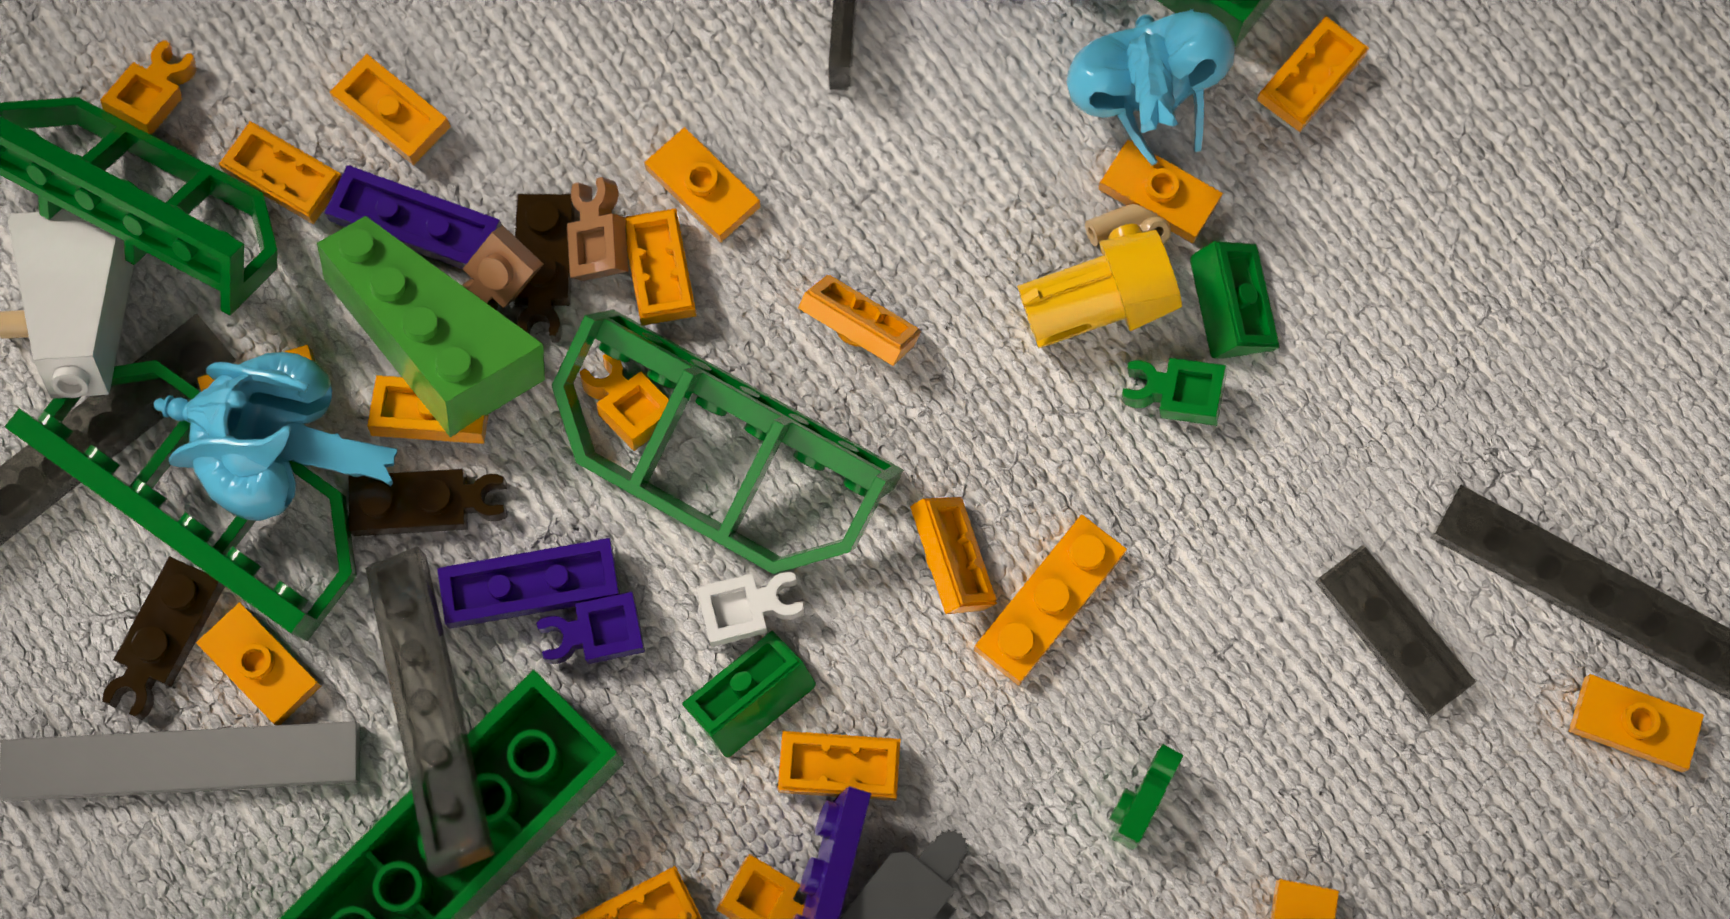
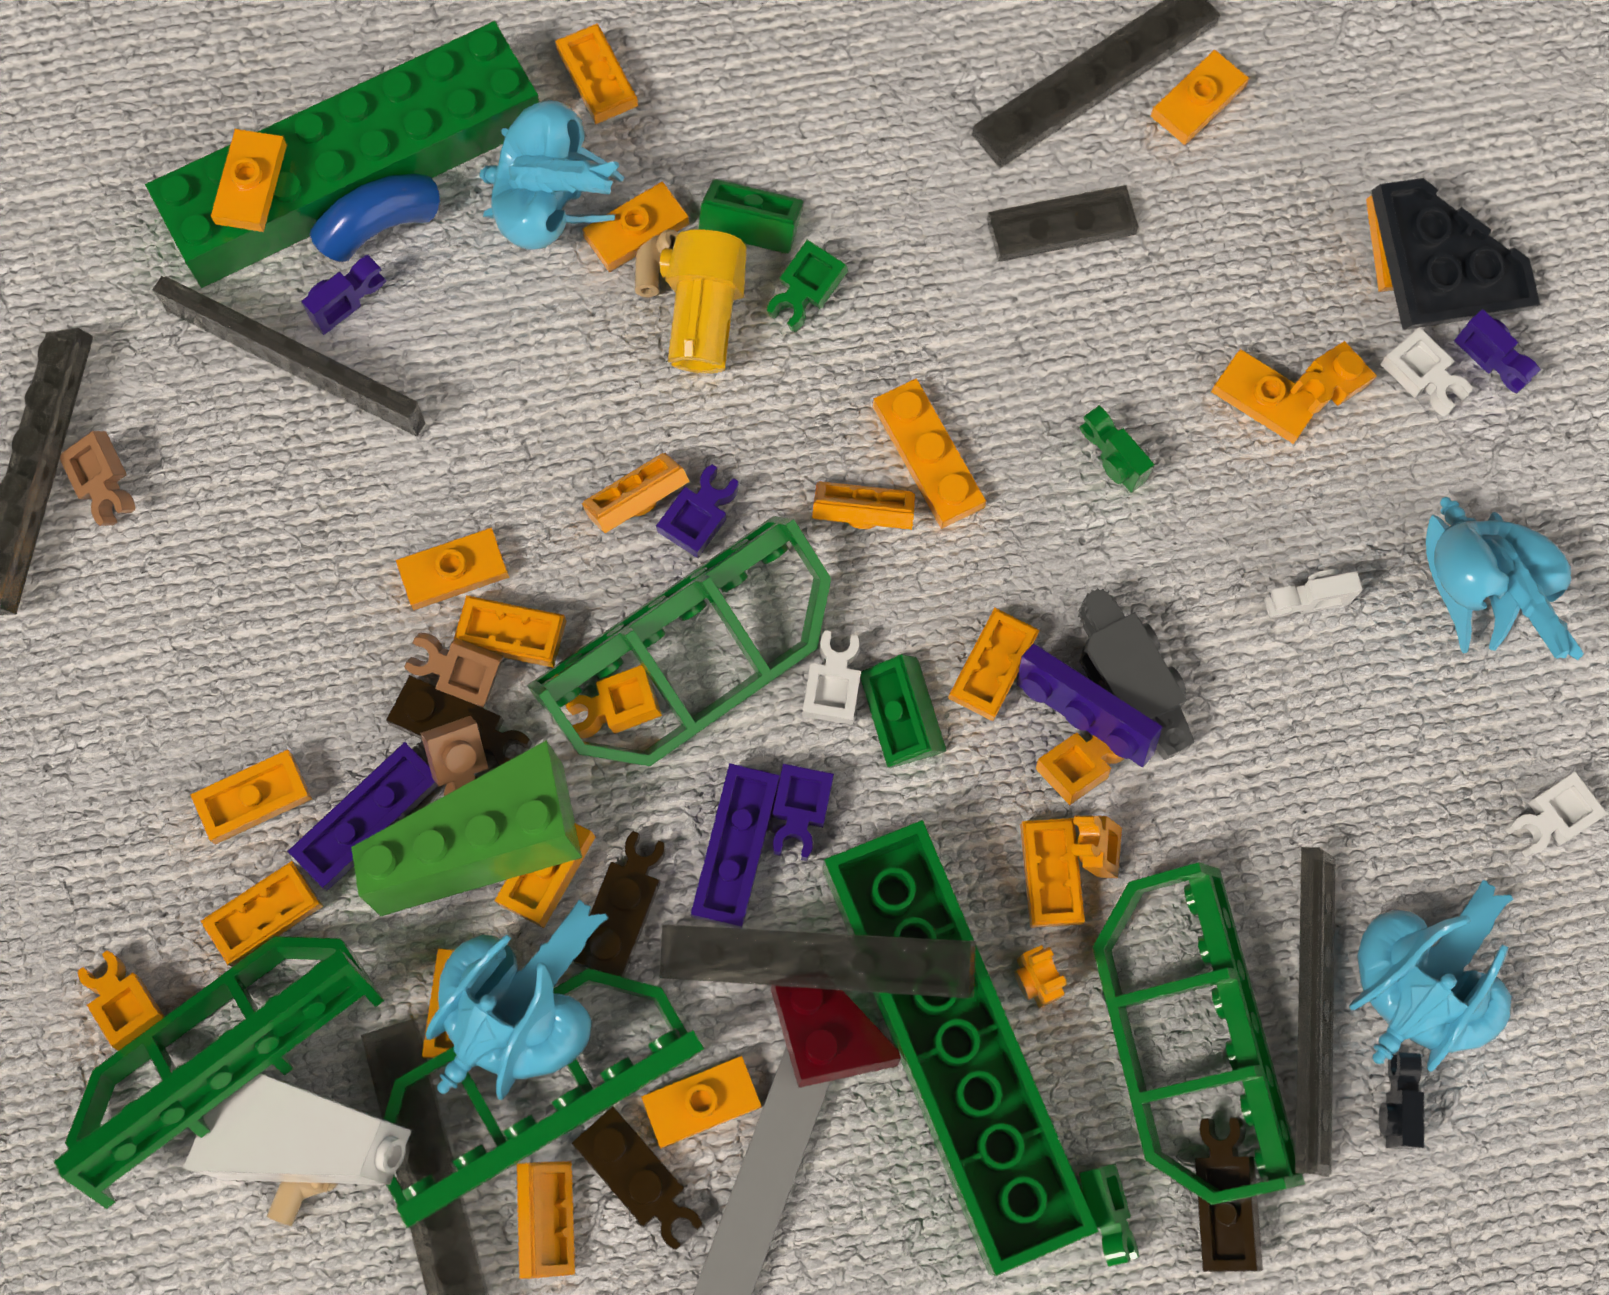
camera: 70 degrees left, 0 degrees up
(85, 564) = (545, 1219): none -> light orange plate
(362, 761) = (829, 1035): none -> dark red wing
(860, 389) = (695, 517): none -> dark purple plate

